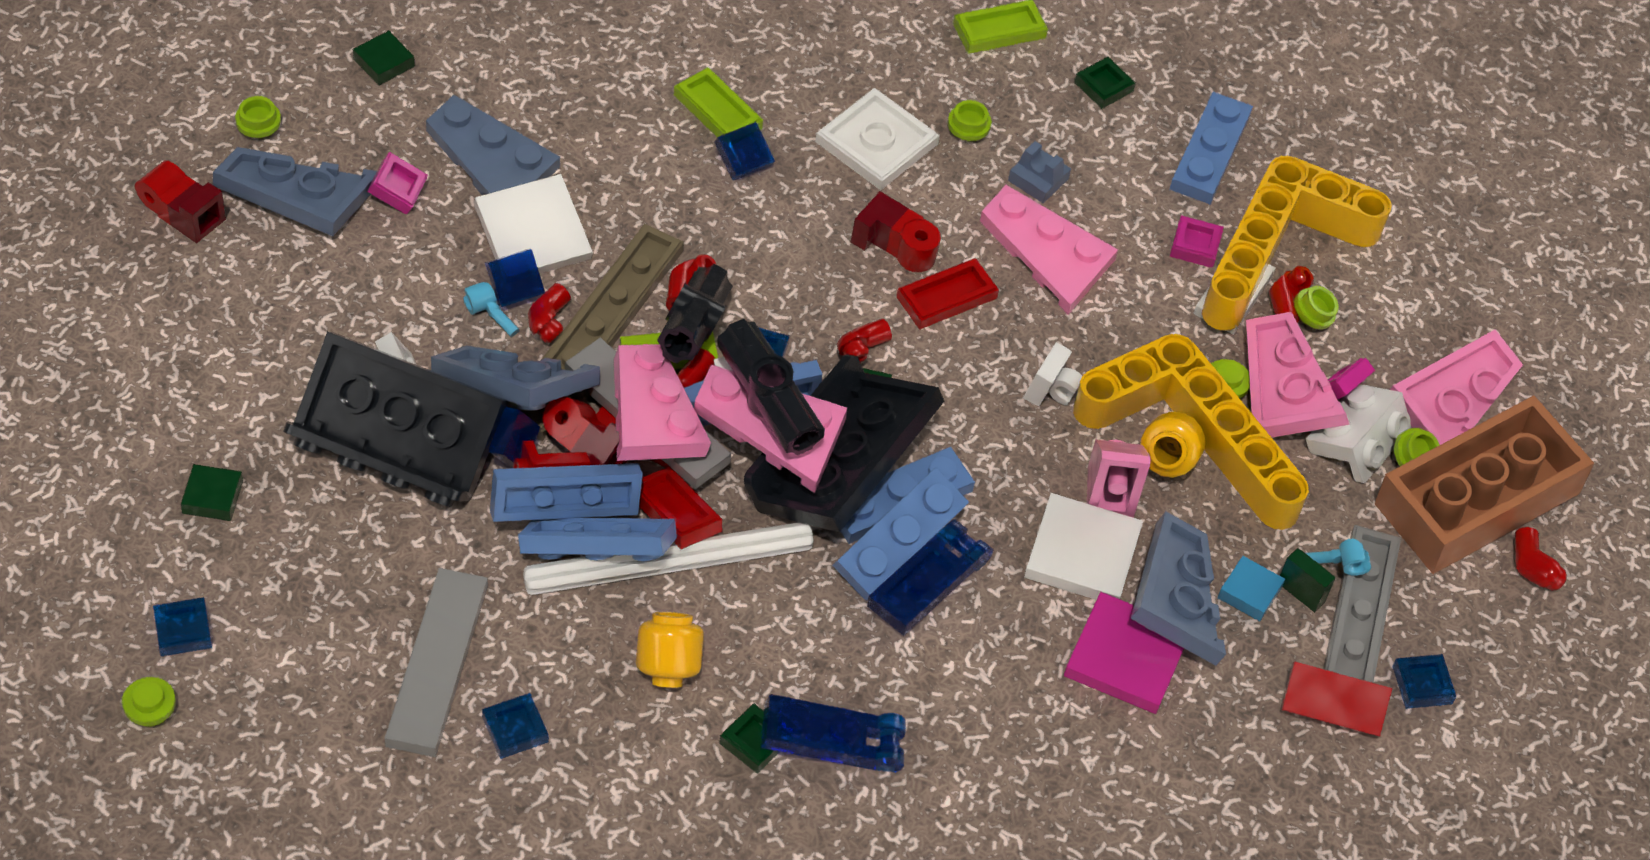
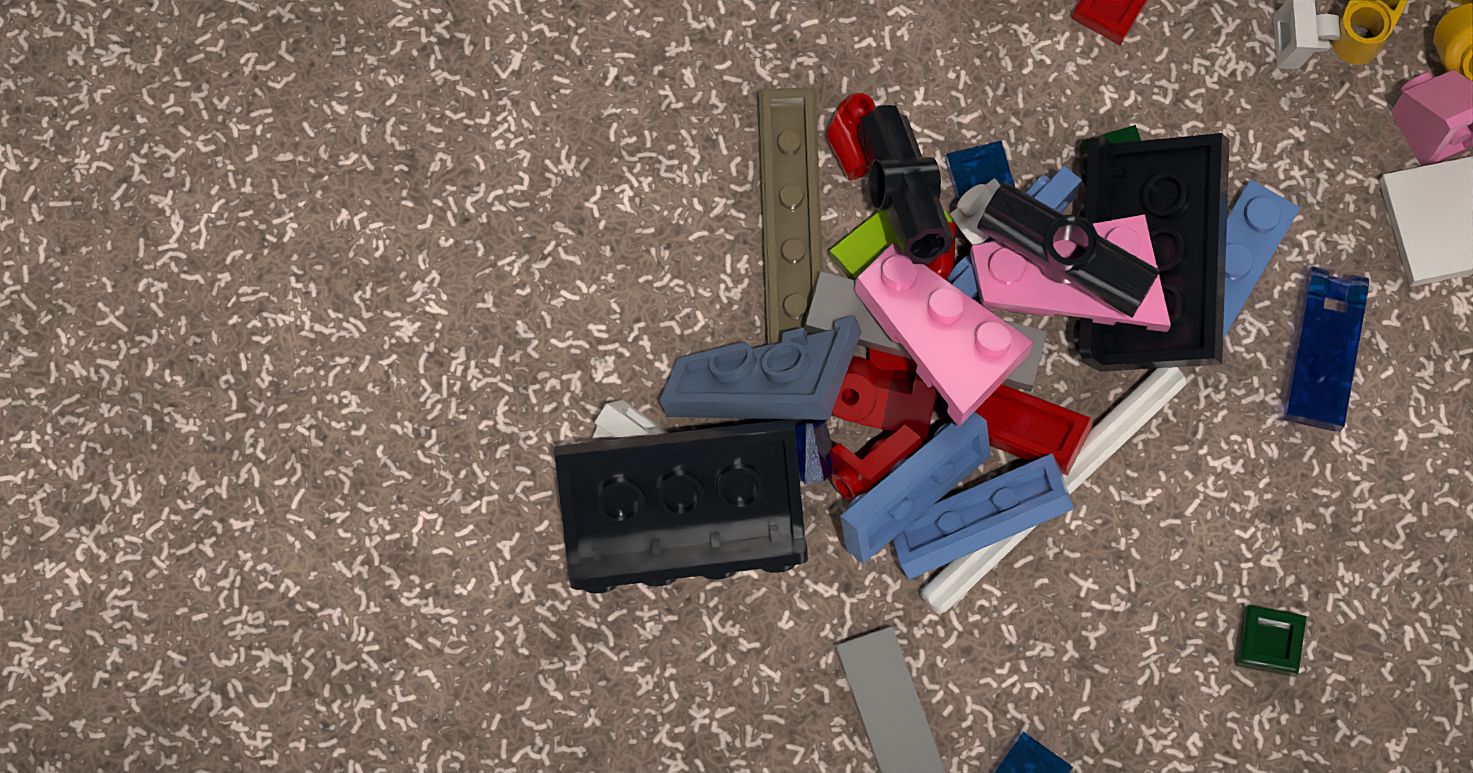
camera: 25 degrees left, 20 degrees up
(181, 200) = (248, 362): leg -> none
(211, 492) = (539, 697): dark green tile -> none
(257, 117) = (251, 202): lime plate -> none
(303, 193) = (367, 270): sand blue wing -> none
(383, 57) = (329, 37): dark green tile -> none
(397, 183) = (464, 197): dark pink tile -> none
(481, 298) = (654, 286): medium azure hand -> none
(487, 148) = (539, 94): sand blue wing -> none
(515, 277) = (673, 244): clear blue tile -> none
(535, 218) = (649, 168): white tile -> none
(544, 309) = (730, 270): red arm -> none
(669, 648) = (1134, 599): yellow head -> none
(833, 733) = (1346, 594): clear blue plate -> none
(863, 337) = (1074, 96): red arm -> none
(900, 533) = (1270, 318): medium blue plate -> none

